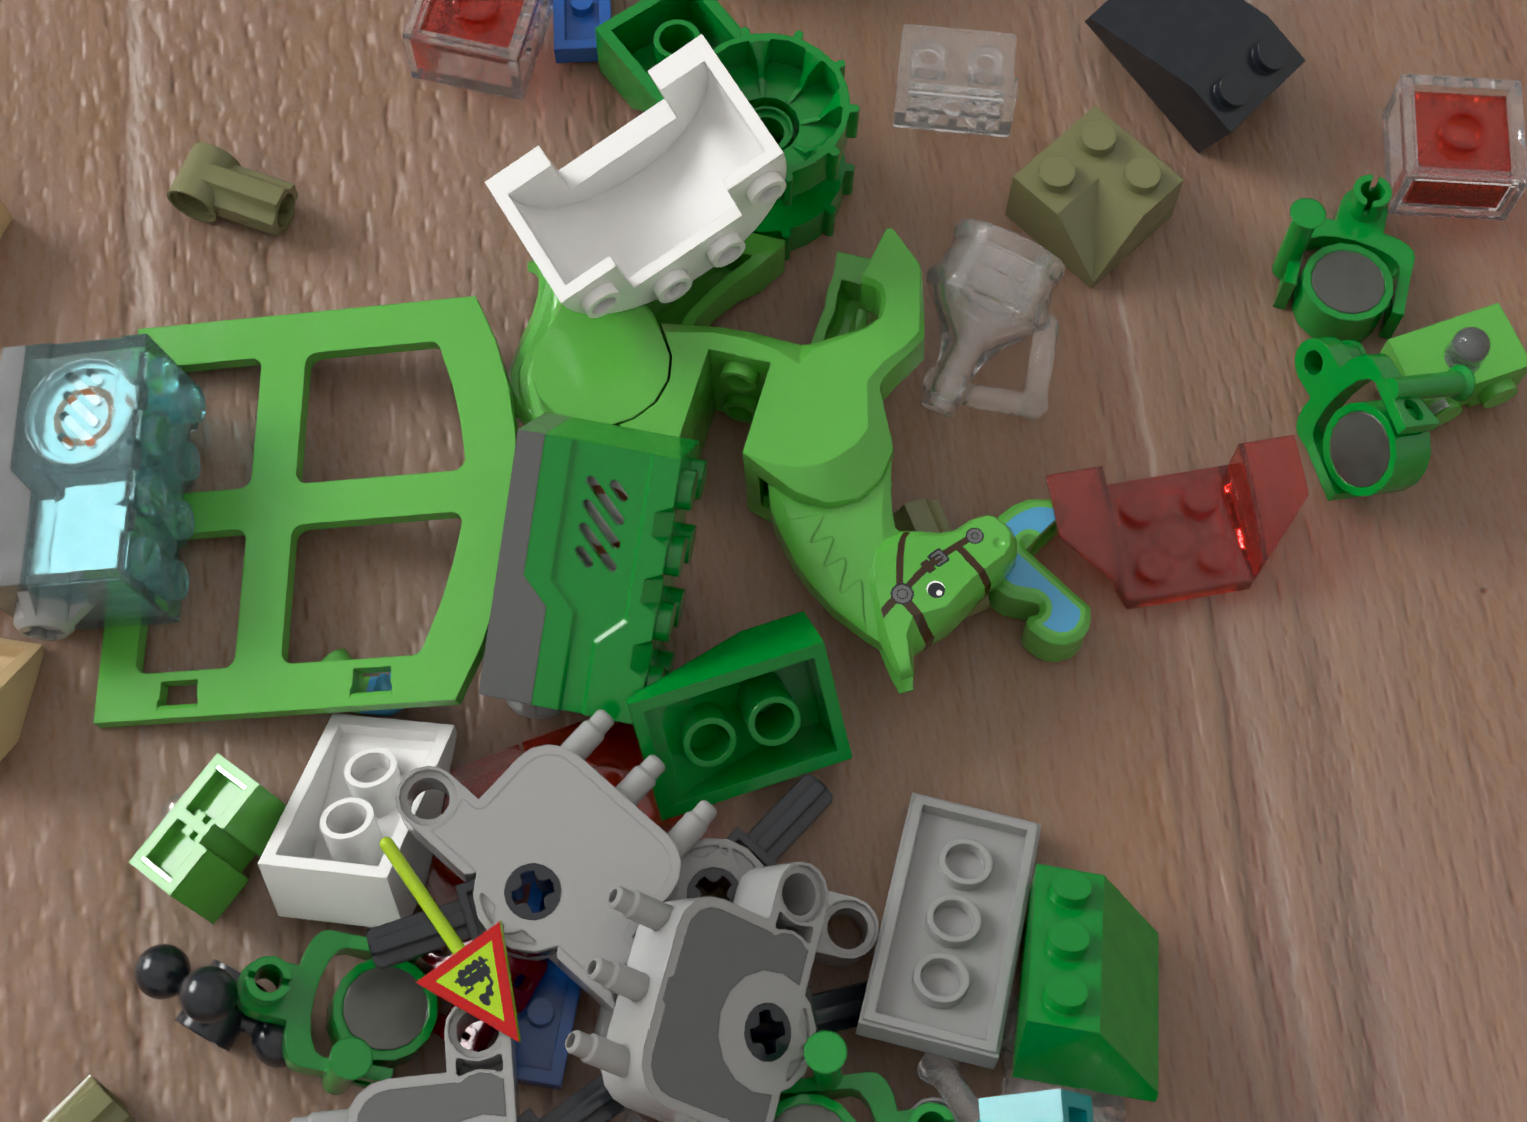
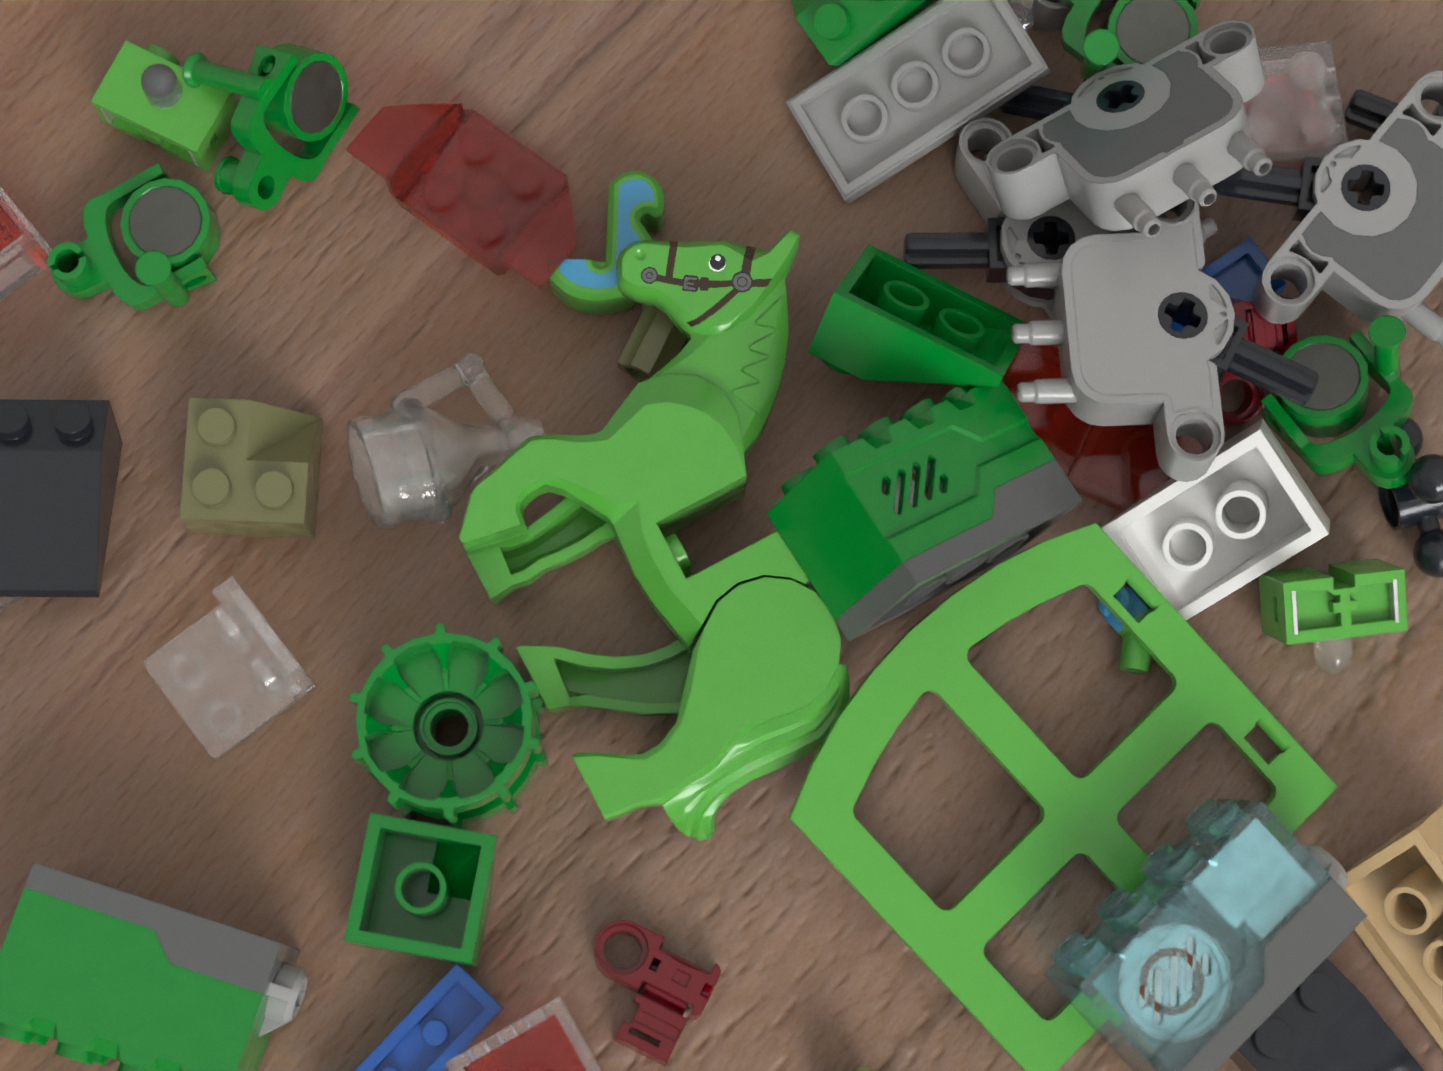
camera: 135 degrees left, 10 degrees up
(456, 160) = (669, 989): none -> dark red piece
(476, 974) = (1268, 306): piece -> none
(653, 197) = (629, 712): white cylinder -> none

